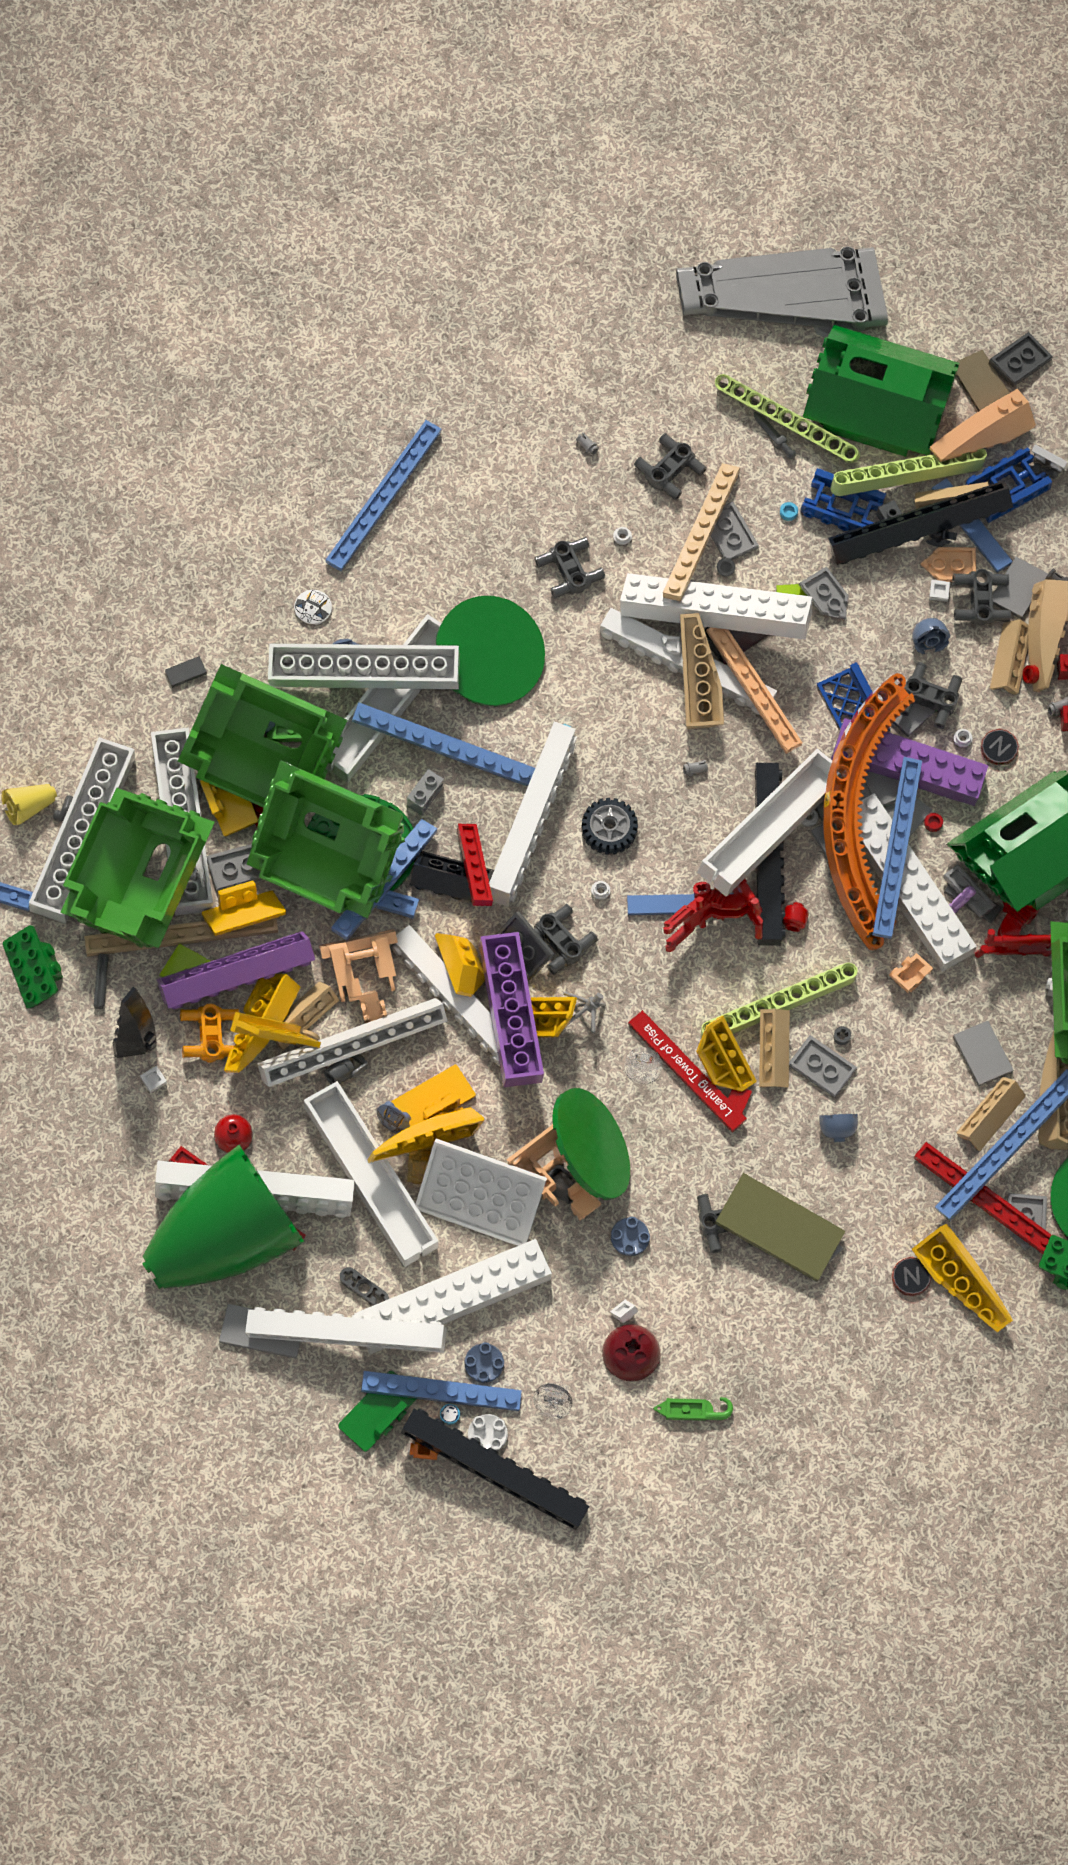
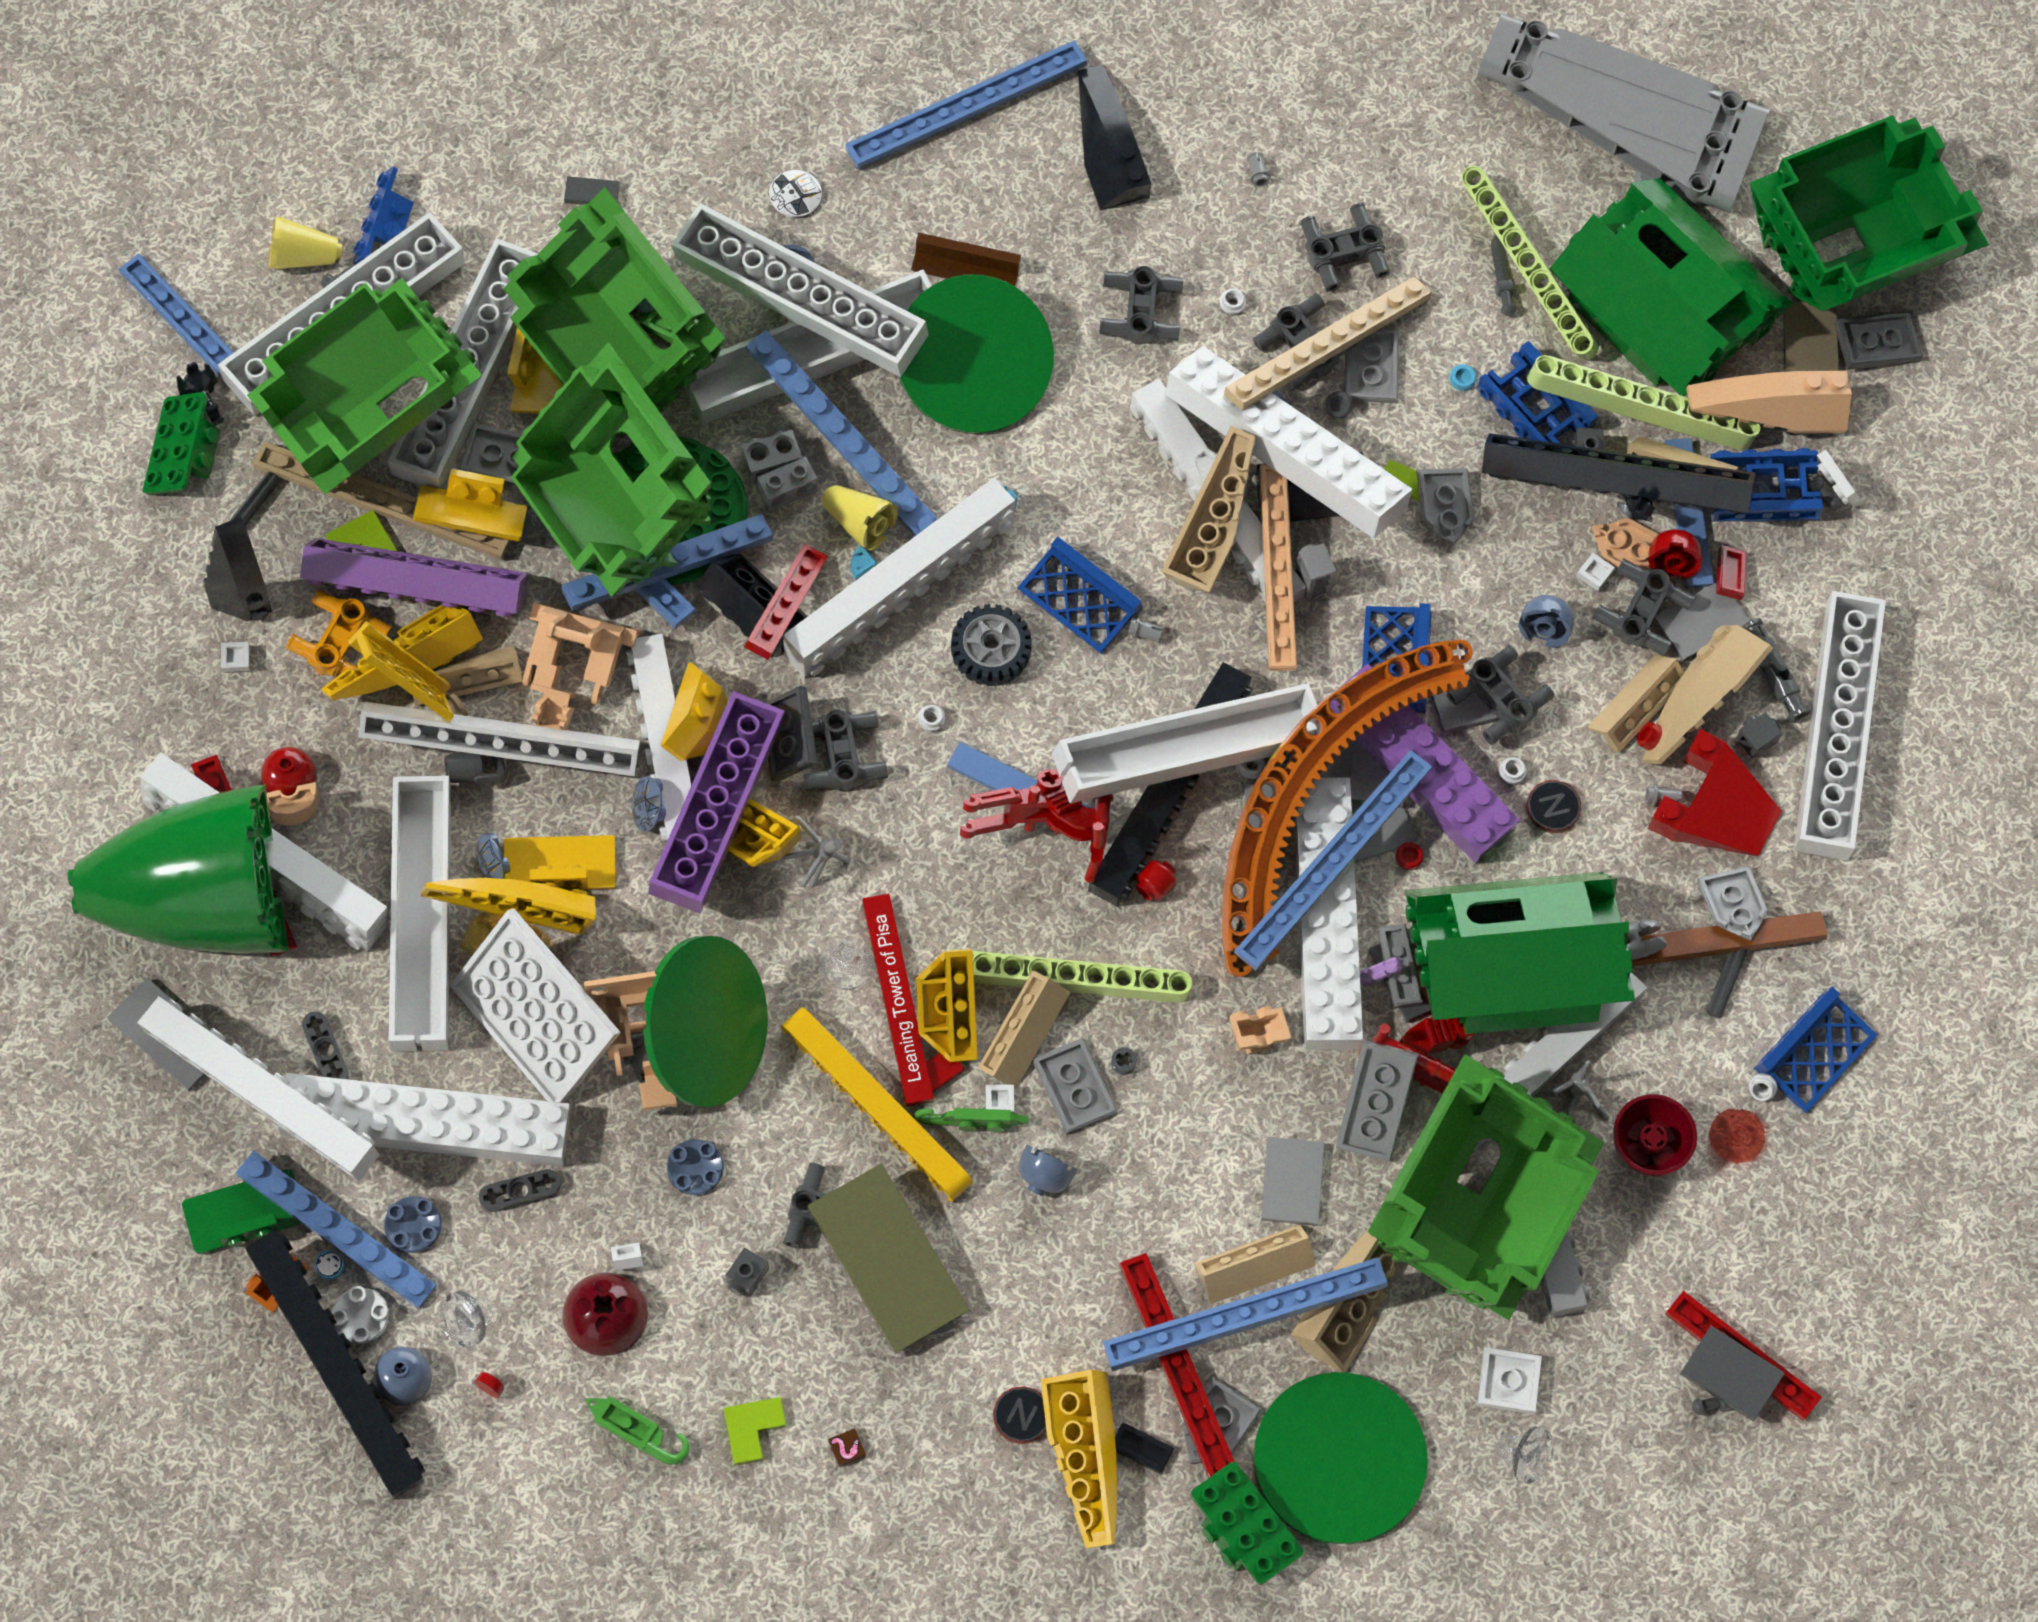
camera: 30 degrees right, 0 degrees up
(20, 920) = (200, 381): none -> black piece
(67, 756) = (387, 216): none -> blue bracket
(255, 1148) = (294, 808): none -> light nougat cylinder
(406, 781) = (768, 448): none -> light grey brick
(444, 595) = (954, 258): none -> reddish brown panel
(465, 1033) = (647, 803): none -> sand blue dish
(480, 787) = (860, 514): none -> light yellow cone
(486, 473) = (1109, 143): none -> black wedge
(499, 817) = (861, 562): none -> medium azure tile
(536, 1454) = (406, 1386): none -> sand blue cylinder
(549, 1301) = (497, 1187): none -> dark grey beam
(591, 1431) = (489, 1384): none -> red tile
(644, 751) = (1098, 581): none -> blue fence
(676, 537) = (1296, 334): none -> dark grey piece
(700, 1282) = (746, 1273): none -> dark grey brick
(714, 1139) = (872, 1098): none -> yellow beam
(755, 1368) = (746, 1421): none -> lime tile
(774, 1119) = (968, 1119): none -> bright green plate
(777, 676) = (1315, 570): none -> light grey brick
(784, 1098) = (1000, 1097): none -> white plate
(822, 1351) = (846, 1447): none -> reddish brown tile
(982, 554) = (1675, 553): none -> red cylinder
(983, 266) = (1886, 187): none -> green panel
(992, 1257) = (1142, 1448): none -> black tile
(1006, 978) = (1377, 1100): none -> light grey tile
(1019, 549) = (1731, 572): none -> tile

